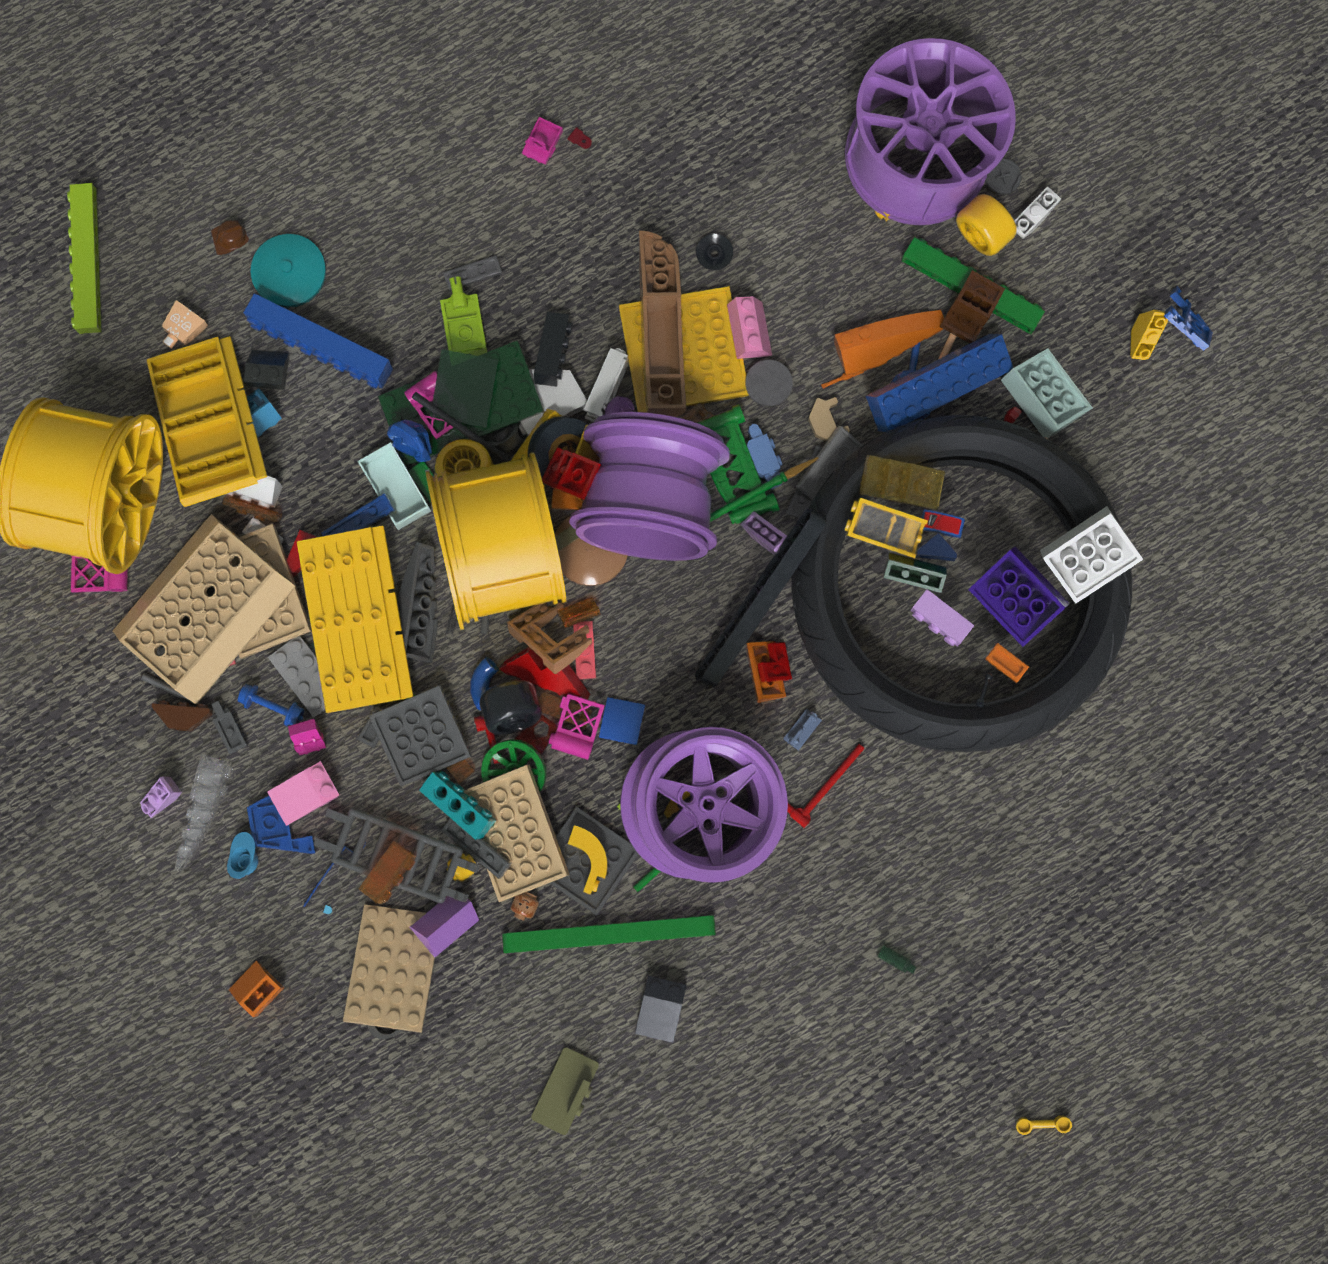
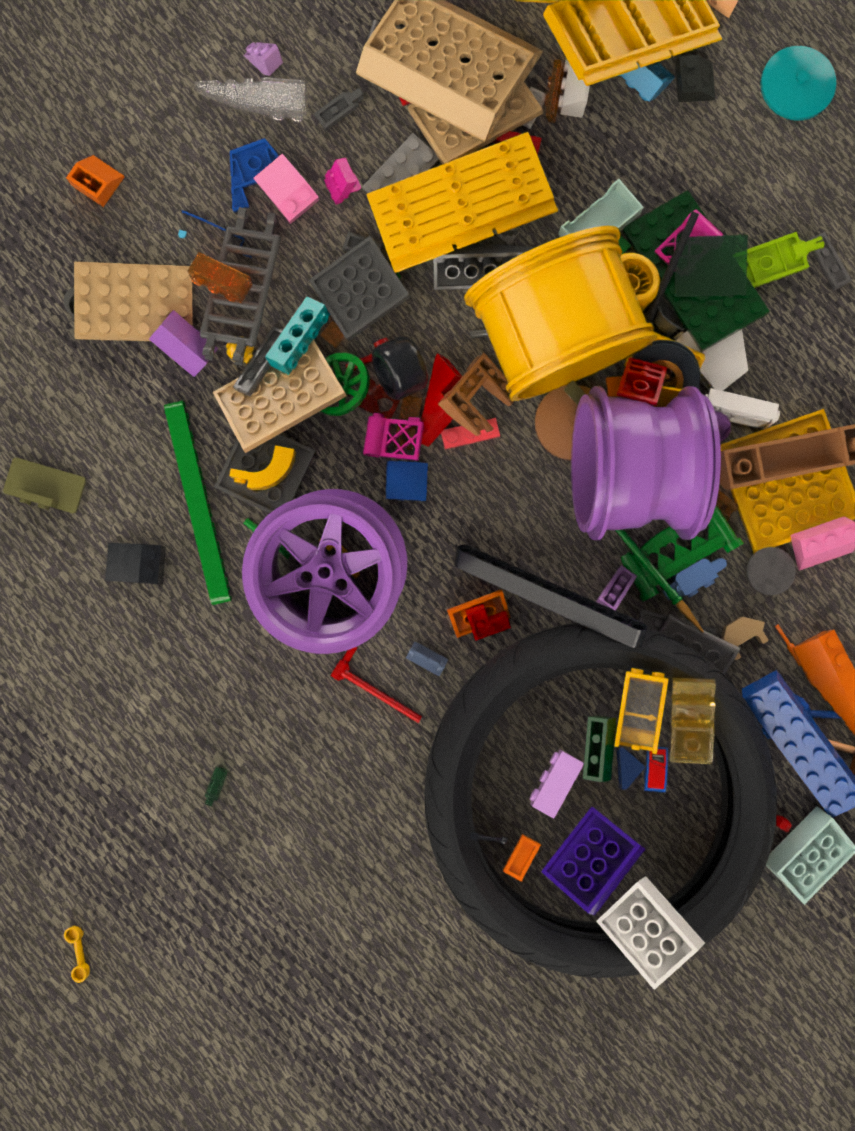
camera: 80 degrees right, 5 degrees up
(182, 716) = (343, 62): reddish brown slope -> none
(229, 237) = (822, 20): reddish brown piece -> none
(242, 856) = (217, 144): dark azure piece -> none
(248, 695) = (372, 121): blue piece -> none
(318, 341) = (732, 120): blue brick -> none
(363, 517) = (566, 198): blue tile -> none
(410, 439) = (650, 224): blue helmet -> none
(481, 679) = (427, 339): blue cylinder -> none
(524, 906) = (212, 417): medium nougat head -> none
(552, 348) = (766, 349): black brick -> none
(578, 612) = (506, 420): clear orange plate -> none

